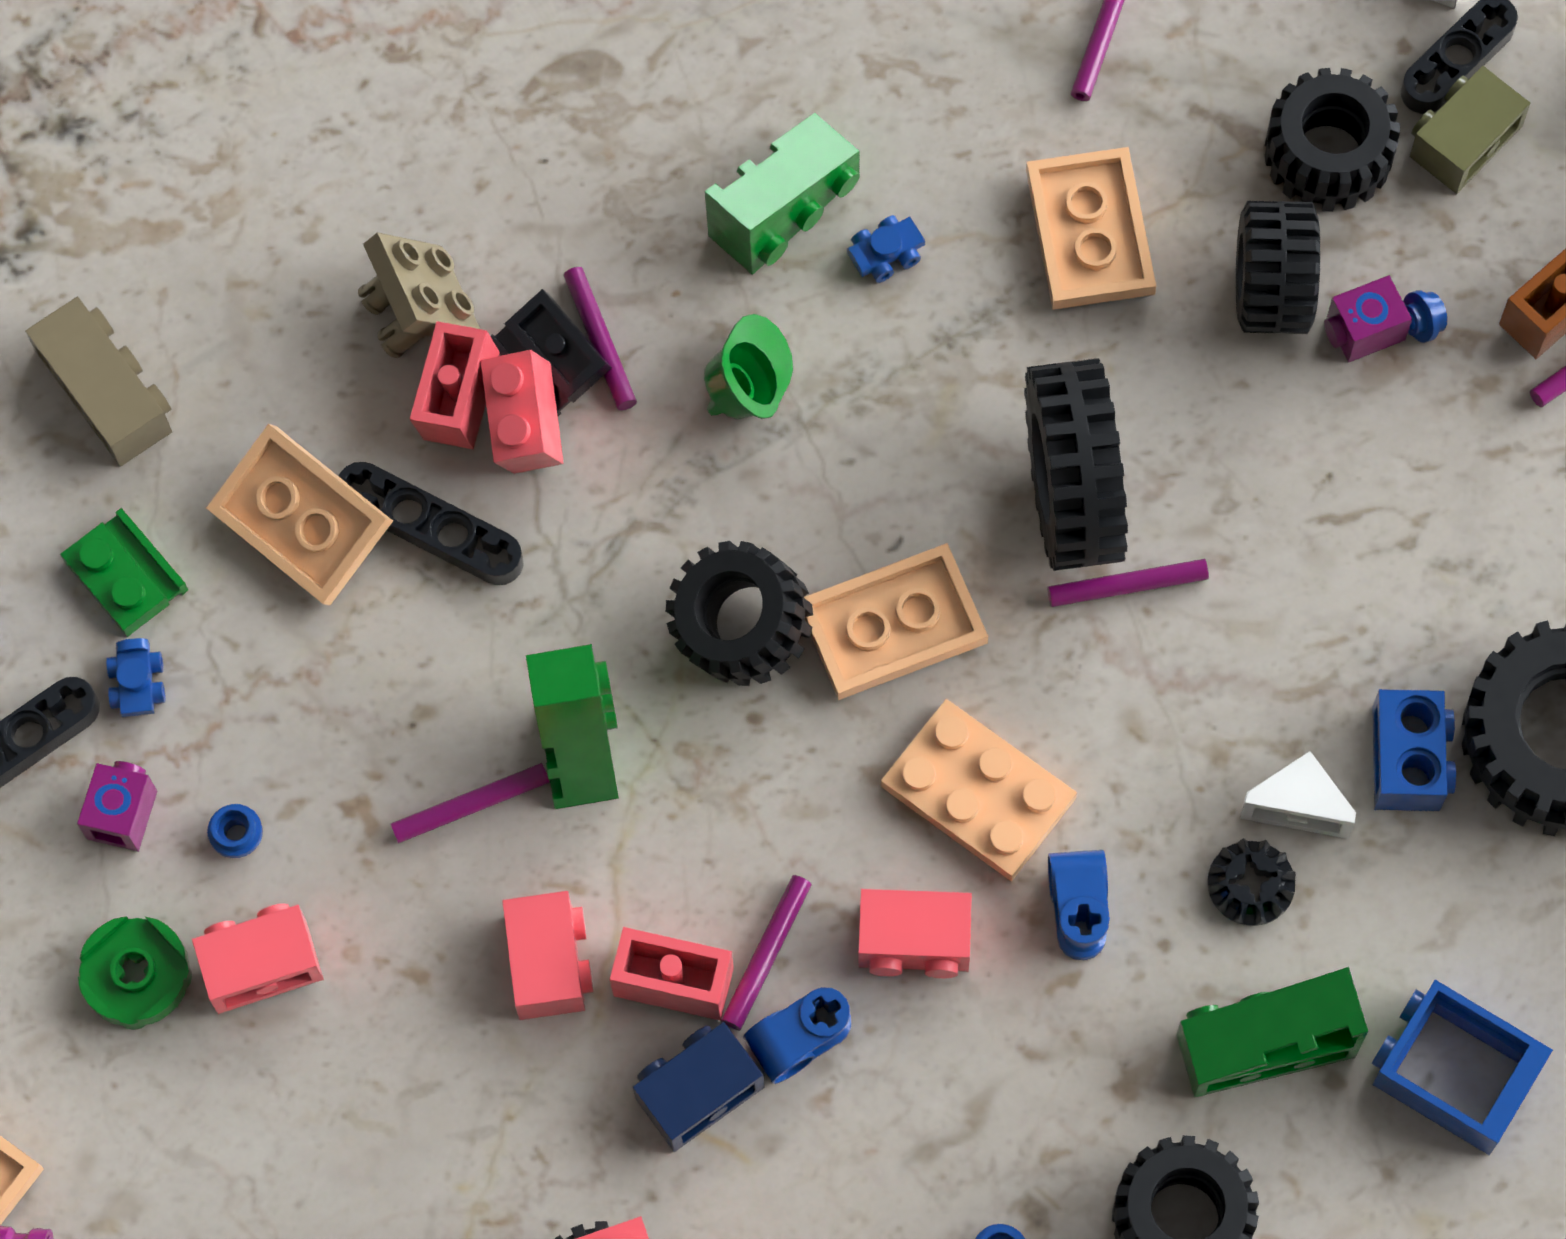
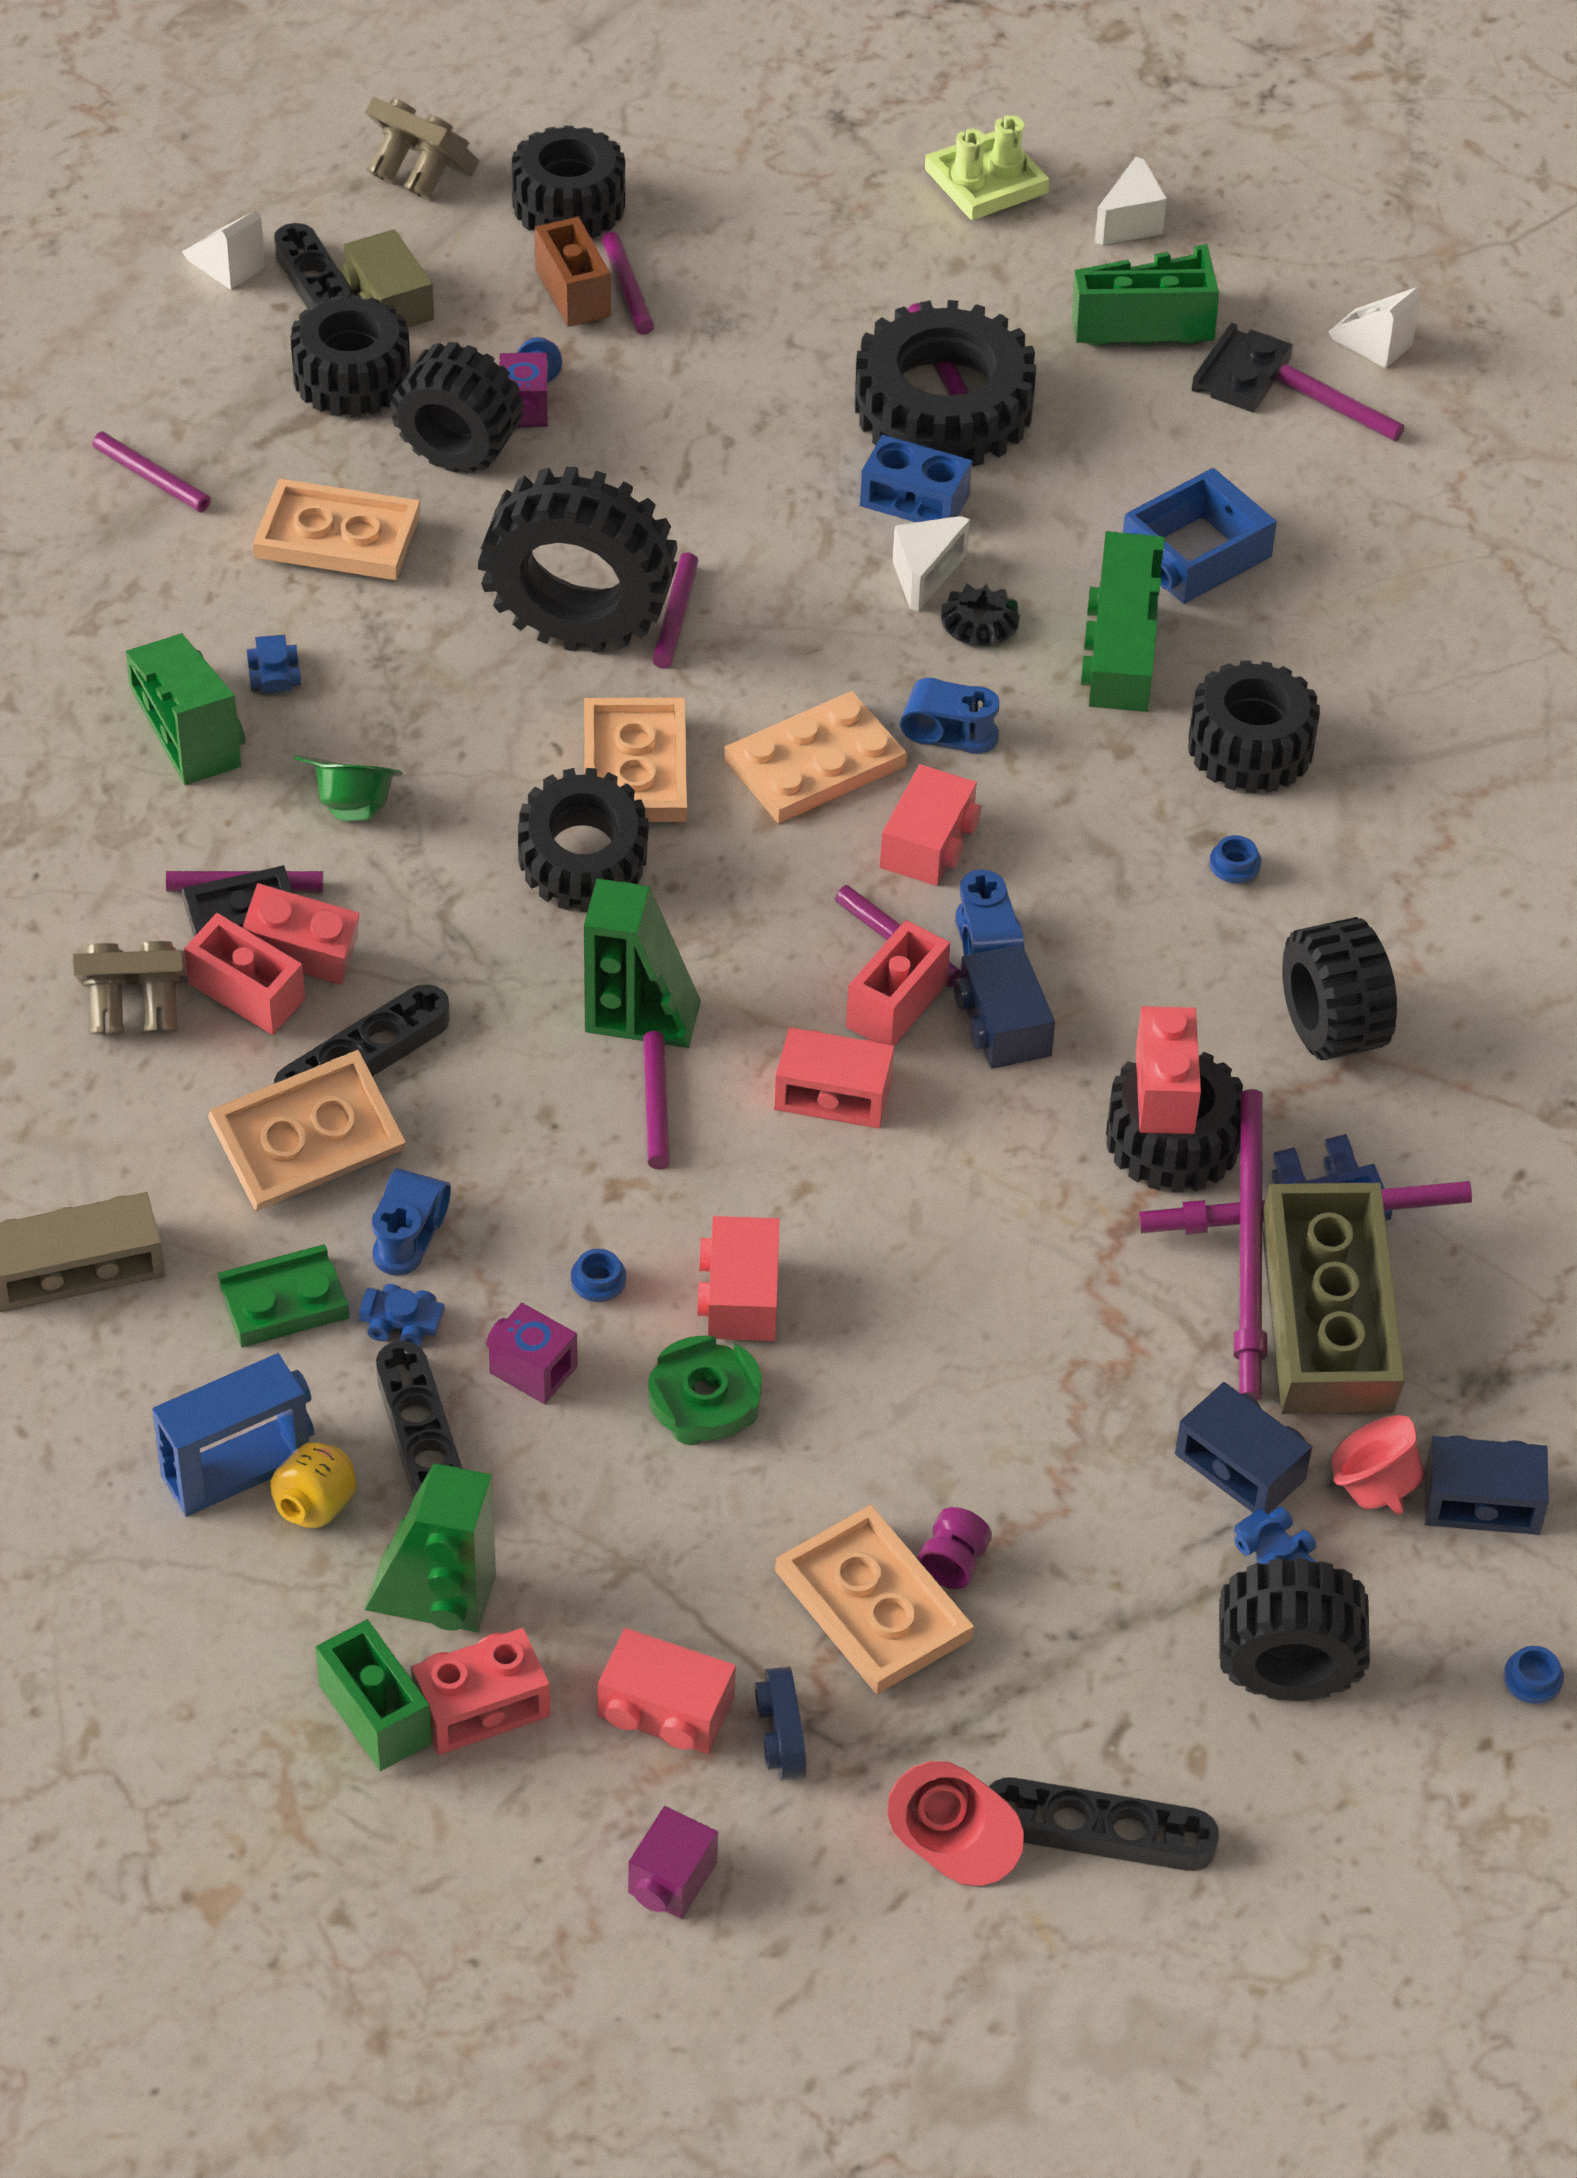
camera: 75 degrees left, 20 degrees down
(243, 639) = (407, 1220): none -> blue piece

